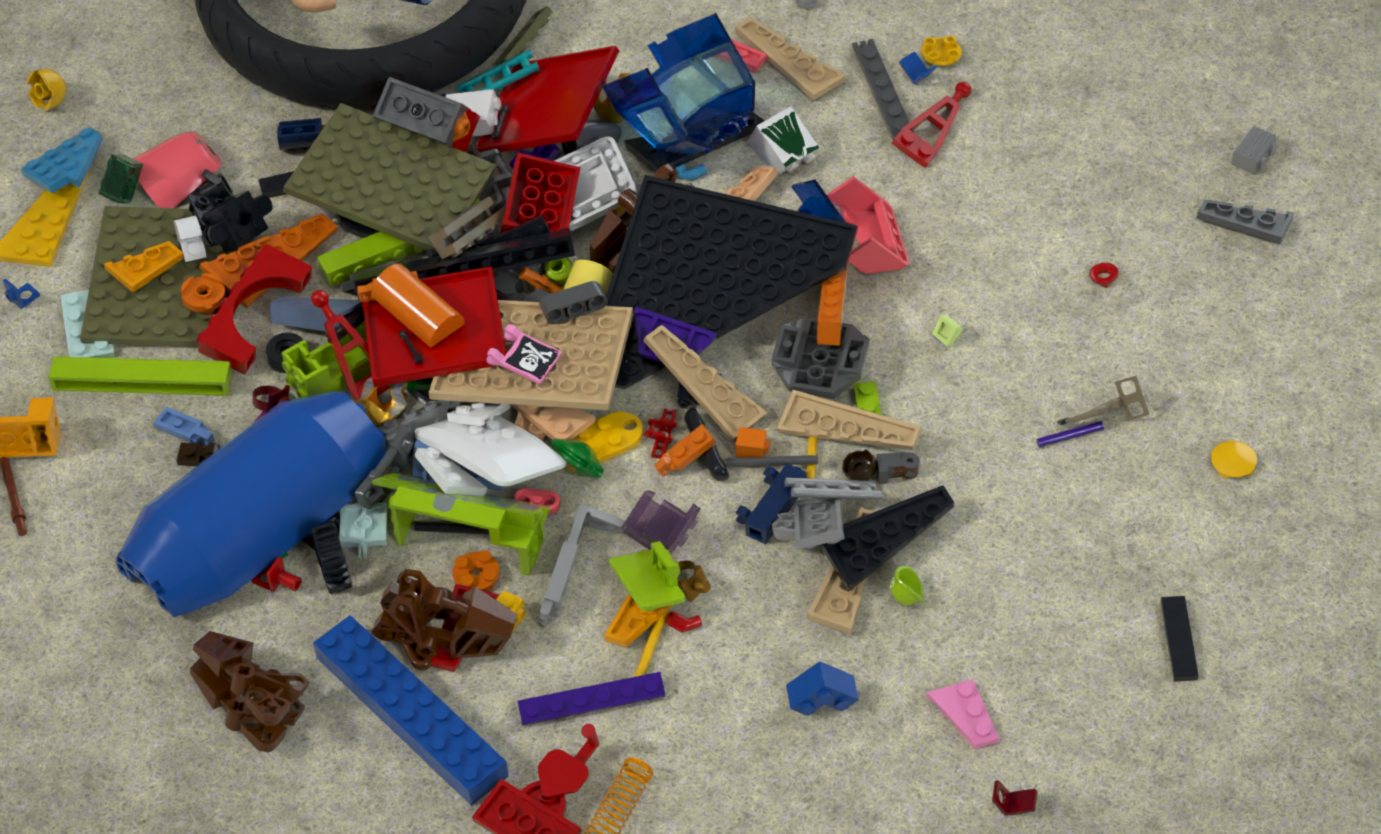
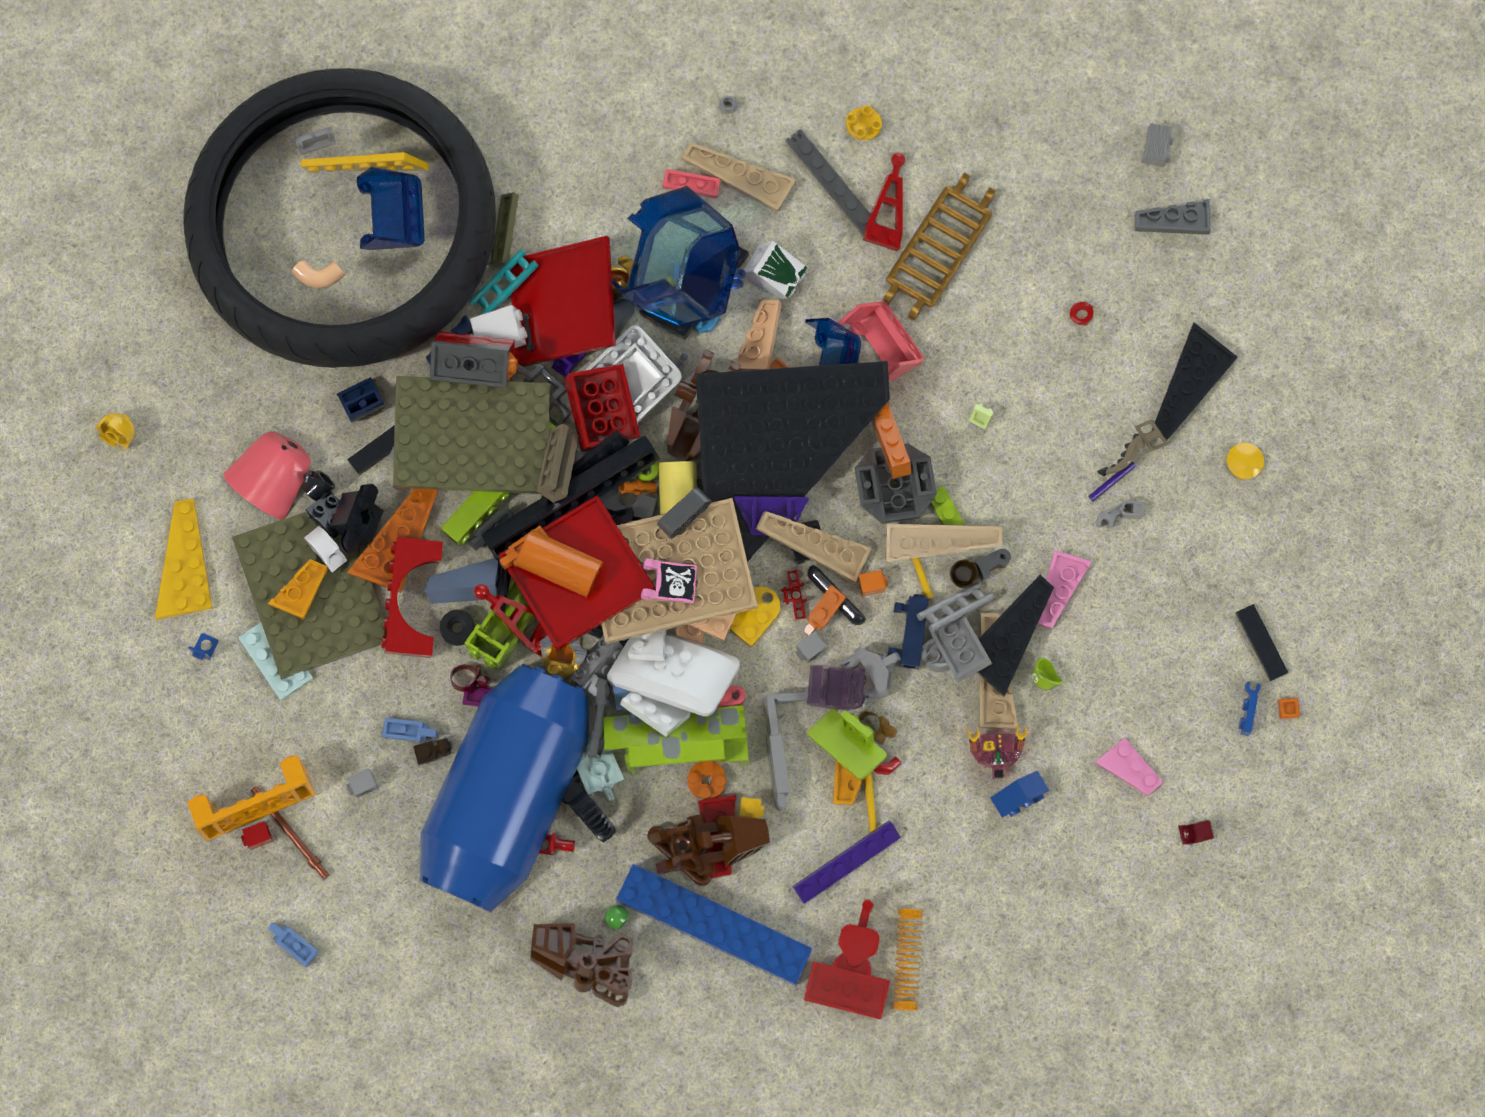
camera: 25 degrees left, 25 degrees up
(66, 162) = (173, 502): dark azure wing -> none
(108, 458) = (361, 783): none -> light grey brick
(120, 178) = (232, 506): clear green brick -> none
(140, 376) = (347, 694): lime brick -> none
(203, 303) = (366, 609): orange plate -> none
(308, 665) = (616, 917): none -> bright green piece
(417, 357) = (582, 613): black hinge -> none
(579, 457) = (741, 647): green hat -> none
(655, 480) = (810, 647): none -> light grey brick
(718, 524) = (878, 668): none -> light grey connector
(772, 461) = (893, 592): dark grey bar -> none
(817, 641) = (997, 750): none -> clear pink torso
(915, 68) = (852, 151): blue bracket -> none
(931, 213) = (958, 258): none -> pearl gold bar
(972, 504) = (1064, 576): none -> bright pink wing
(1067, 461) = (1111, 514): none -> light grey piece
(1134, 696) = (1249, 706): none -> blue plate
(1184, 713) = (1288, 708): none -> orange tile
(1205, 364) = (1197, 371): none -> black wing

